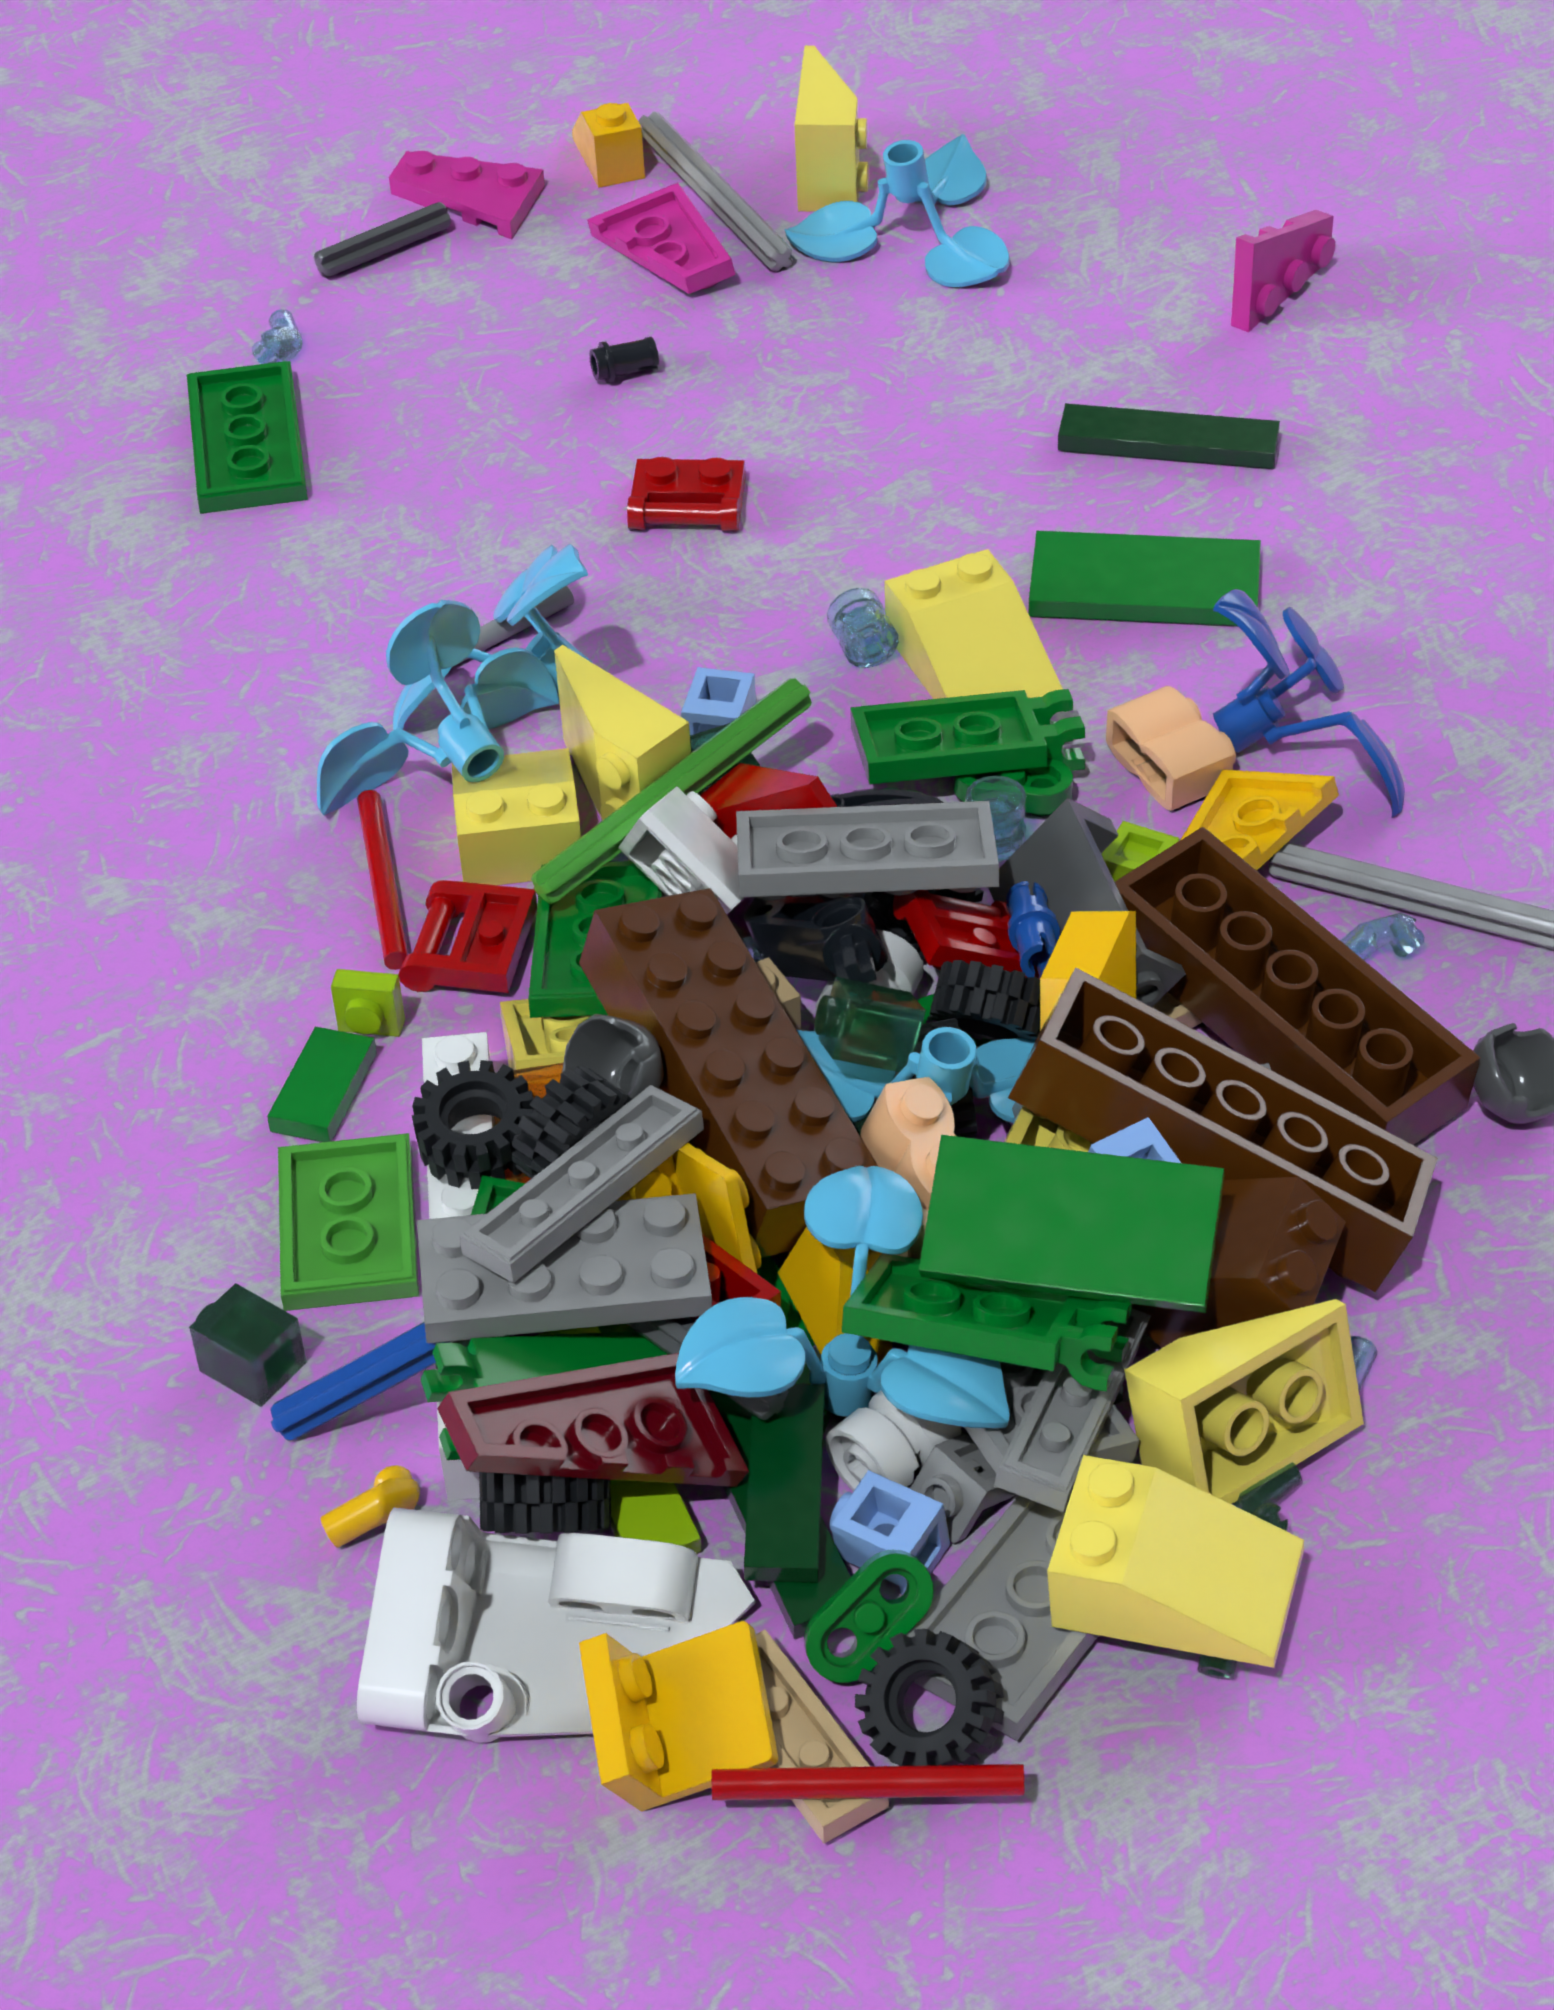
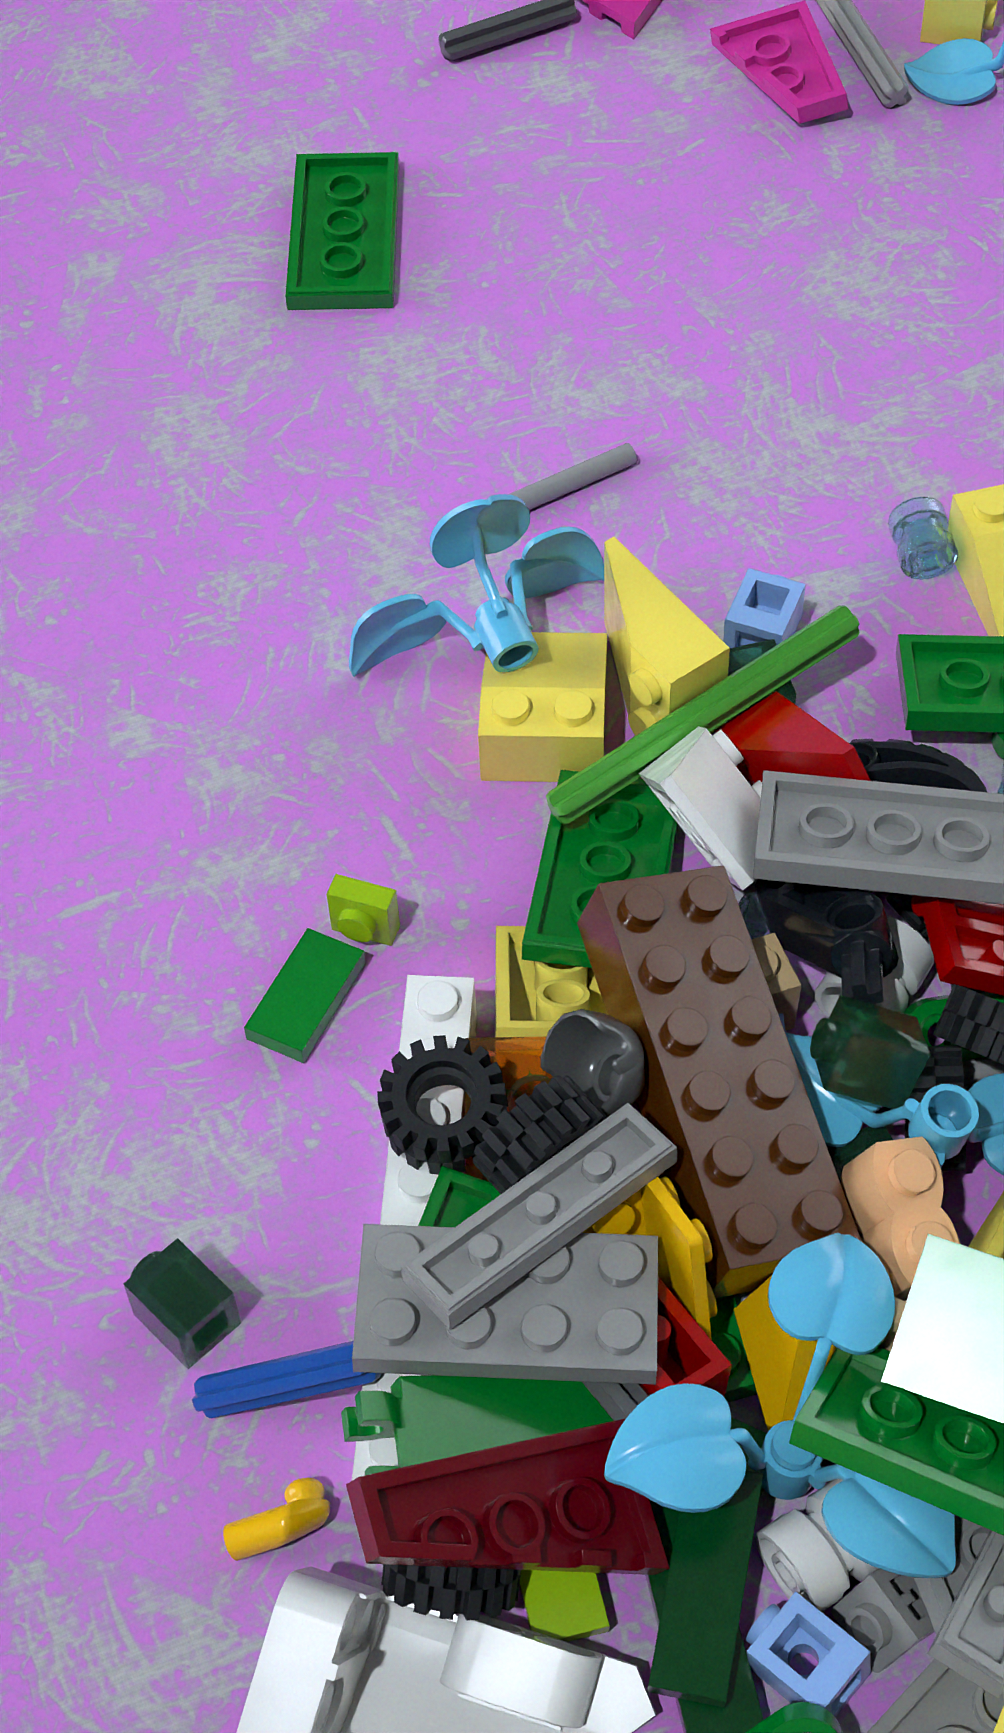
camera: 10 degrees right, 10 degrees up
(280, 341) = (391, 129): clear light blue arm -> none
(347, 1222) = (305, 1163): bright green tile -> none
(382, 879) = (400, 761): red bar -> none
(486, 943) = (493, 852): red plate -> none
(543, 578) = (601, 465): medium azure plant -> none
(623, 358) = (724, 191): black pin -> none
(687, 492) = (766, 353): red plate -> none

